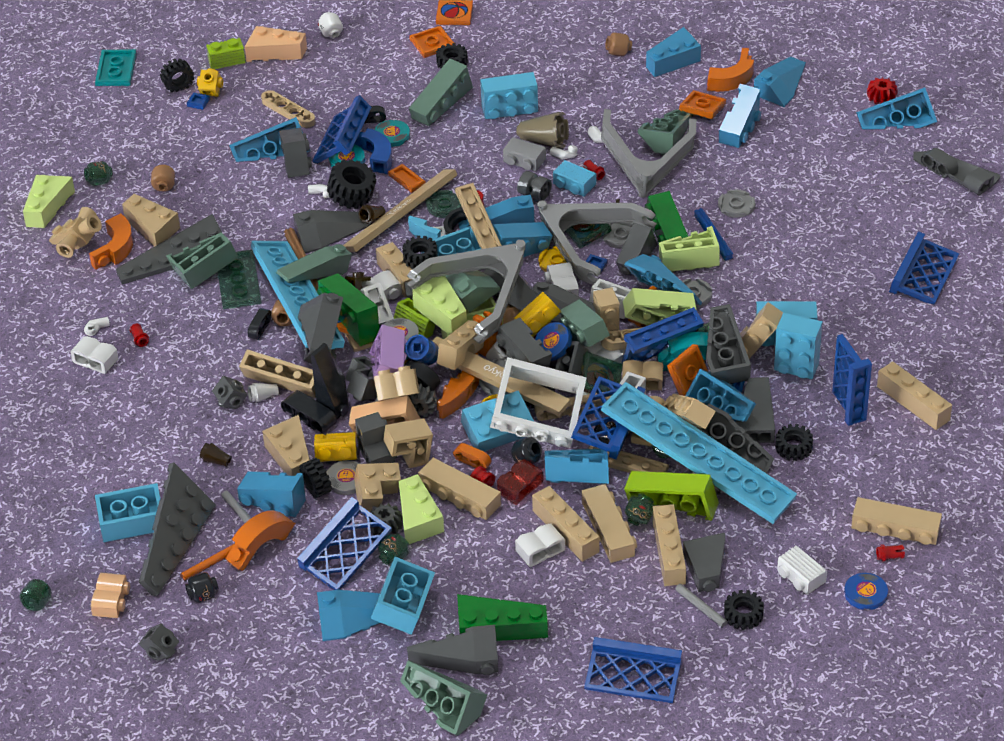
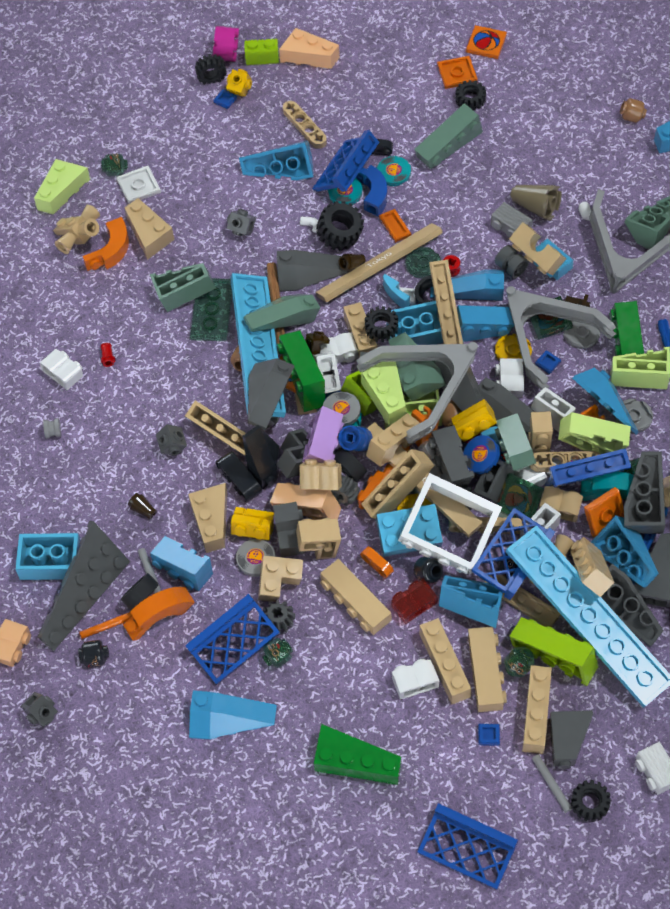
camera: 15 degrees right, 15 degrees up
(94, 325) = (70, 334): white arm -> none
(100, 406) = (52, 428): none -> light grey wheel
(116, 67) = (160, 46): teal tile -> none
(126, 185) = (138, 184): none -> white tile
(155, 260) = (183, 254): dark grey wing -> none
(163, 178) = (170, 182): medium nougat head -> none
(186, 48) = (225, 43): none -> dark pink brick
(235, 521) = (139, 591): none -> black tyre
(247, 199) = (241, 222): none -> dark grey brick
(259, 323) = (217, 366): black beam -> none
(260, 391) = (202, 443): white cone -> none
(295, 148) = (296, 178): dark grey brick -> none
(315, 477) = (224, 556): black tyre -> none
(330, 25) = (366, 36): white head -> none
(403, 595) = (271, 712): medium azure brick -> none
(419, 511) = (310, 614): yellowish green wedge -> none
(450, 700) = (290, 838): sand green wedge -> none
(468, 652) = (321, 791): dark grey wedge -> none
(476, 378) = (398, 483): none -> tan brick
(481, 474) = (380, 589): red wheel -> none
(509, 95) = (512, 153): medium azure brick -> none
(564, 154) = (550, 228): white arm -> none
(570, 174) = (525, 240): none -> tan arch
(600, 173) = (573, 252): red pin -> none
(627, 577) = (489, 734): none -> blue tile
(639, 242) = (591, 355): dark grey slope -> none

